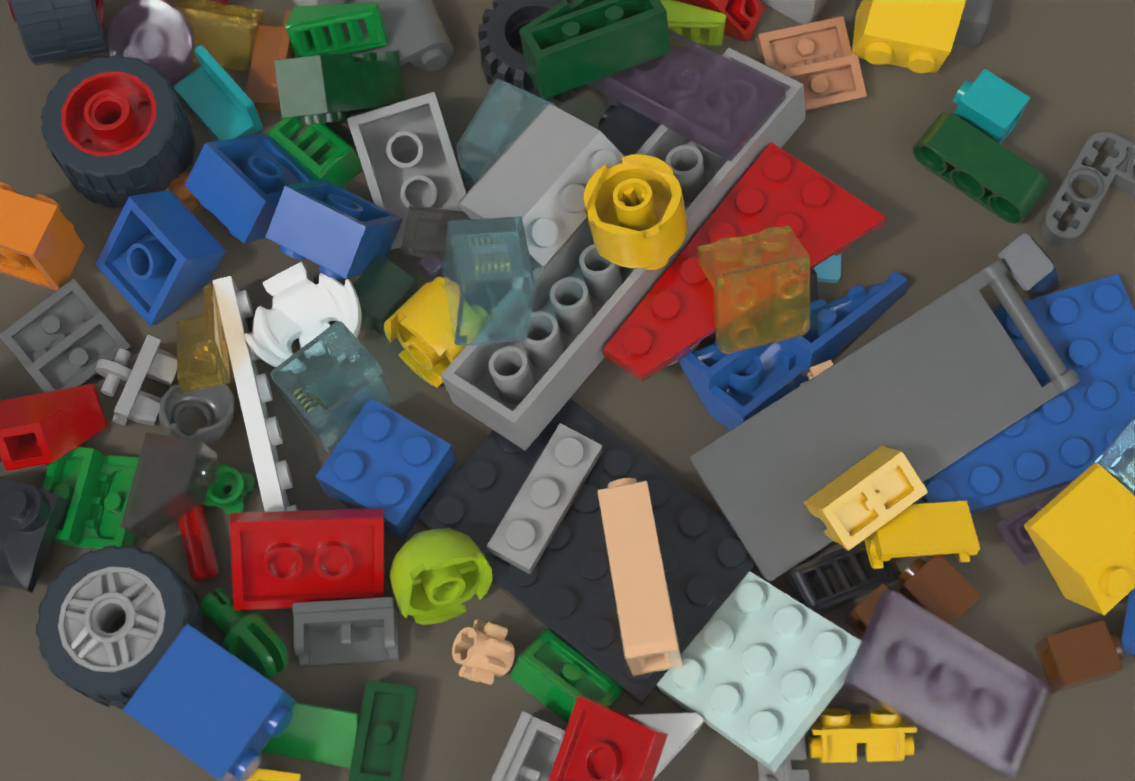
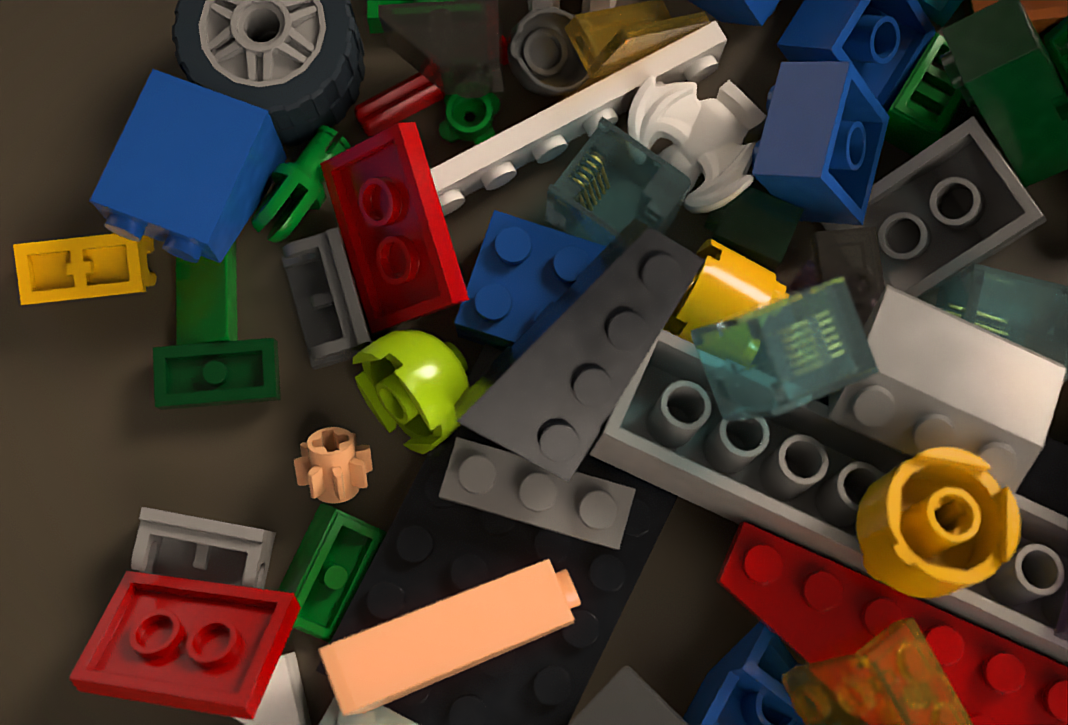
camera: 70 degrees right, 10 degrees up
(447, 426) = (580, 355): none -> black wedge

